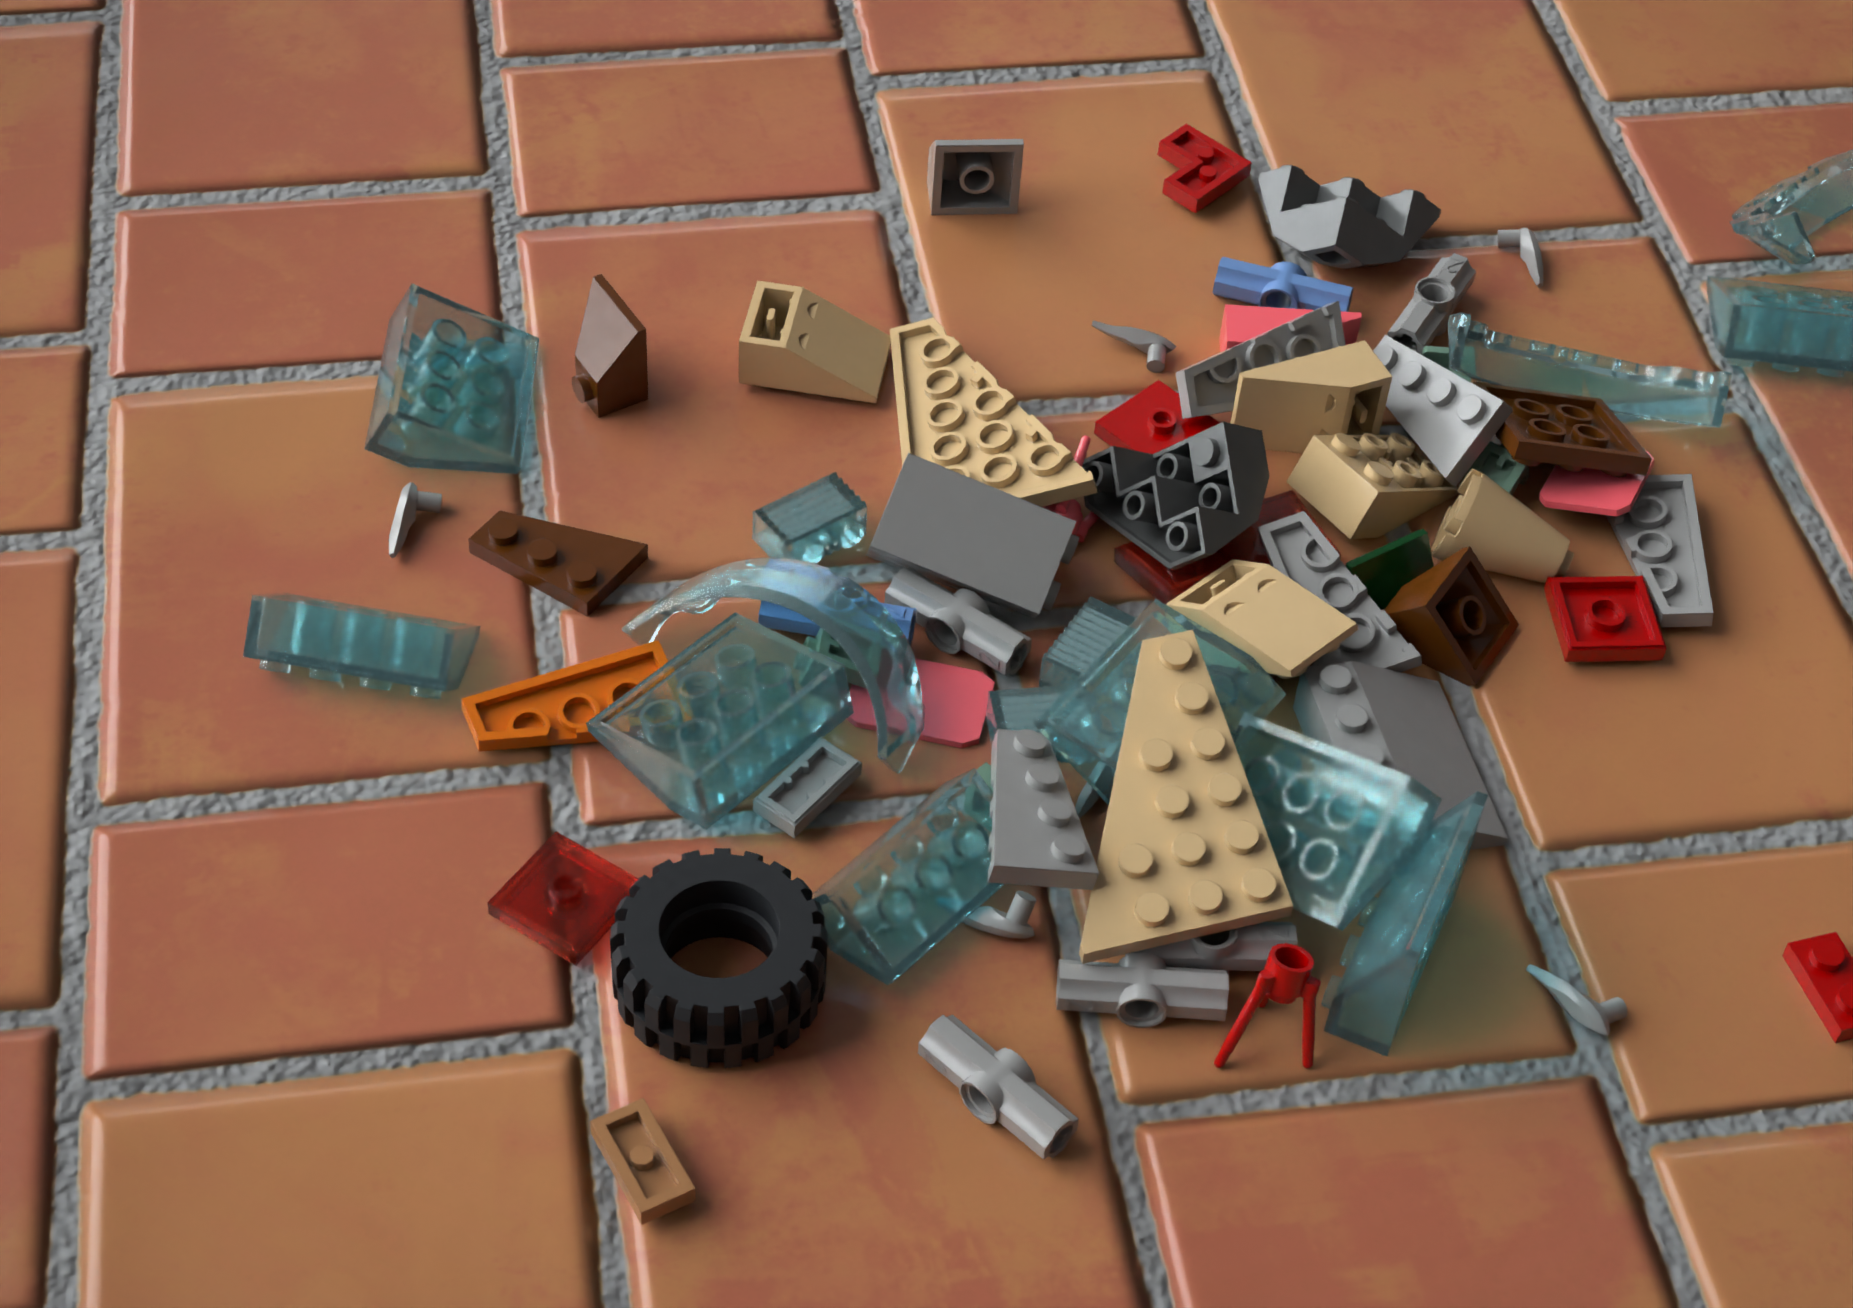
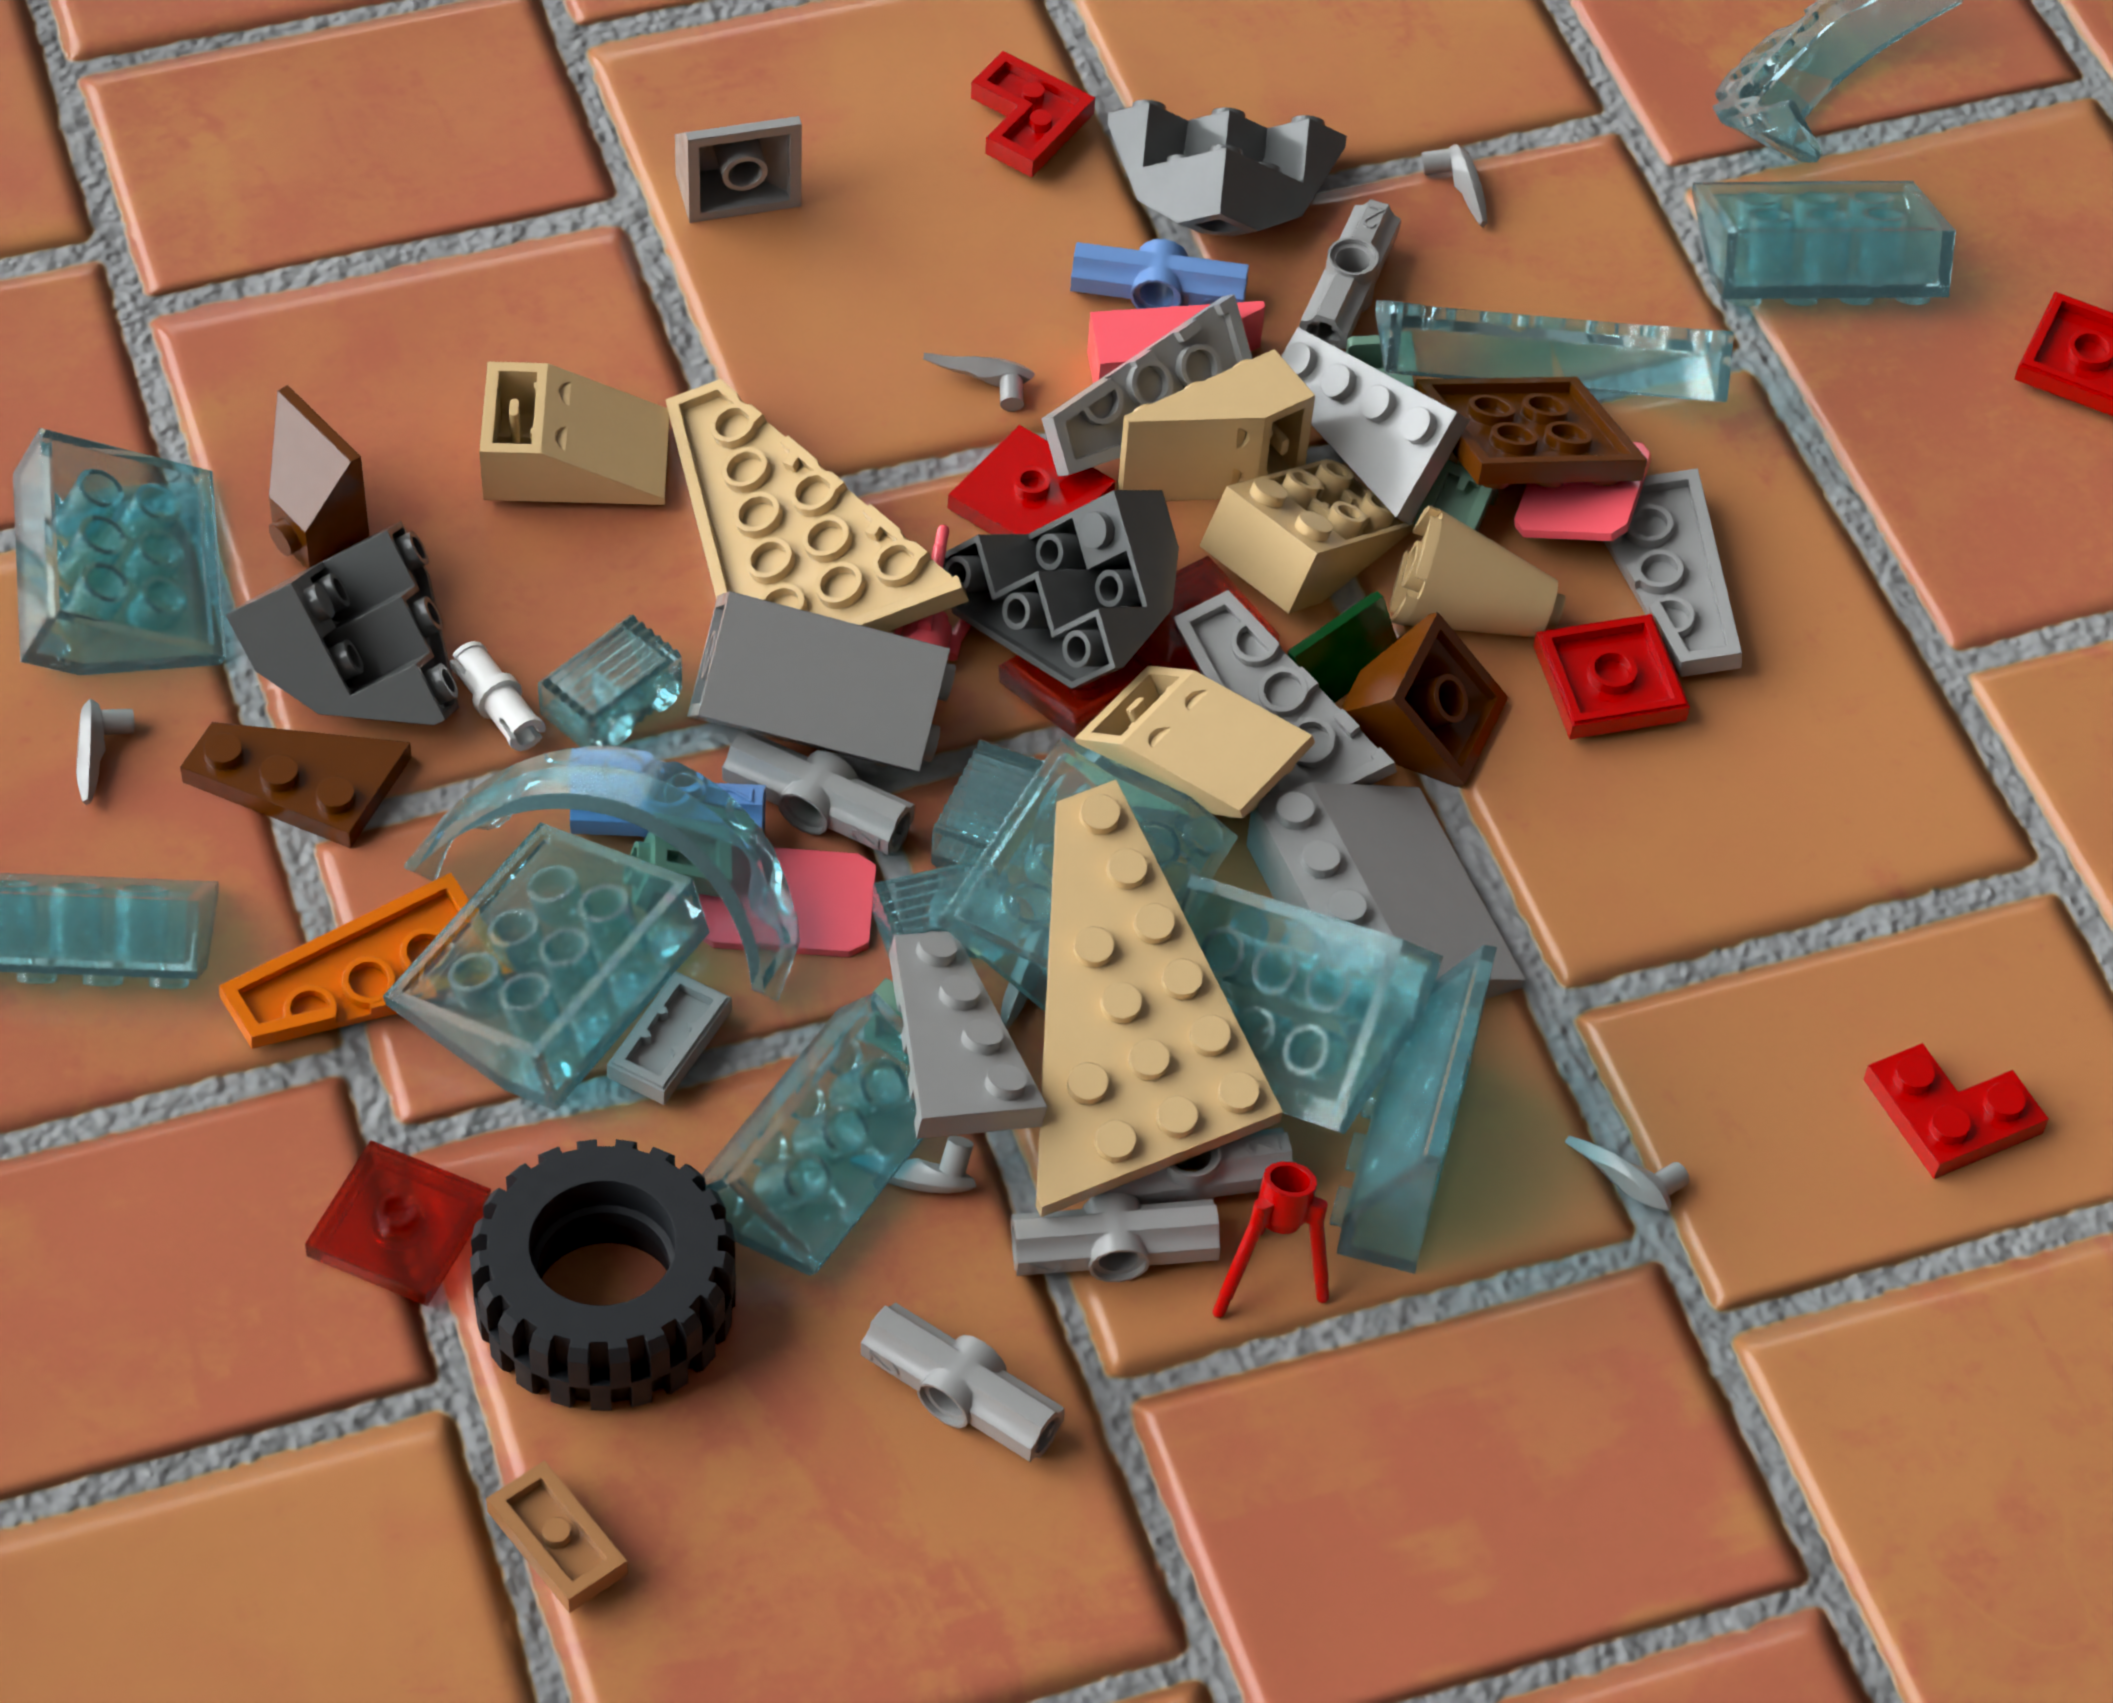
camera: 10 degrees left, 5 degrees up
(620, 460) = (356, 634): none -> dark grey brick
(721, 520) = (497, 696): none -> white pin

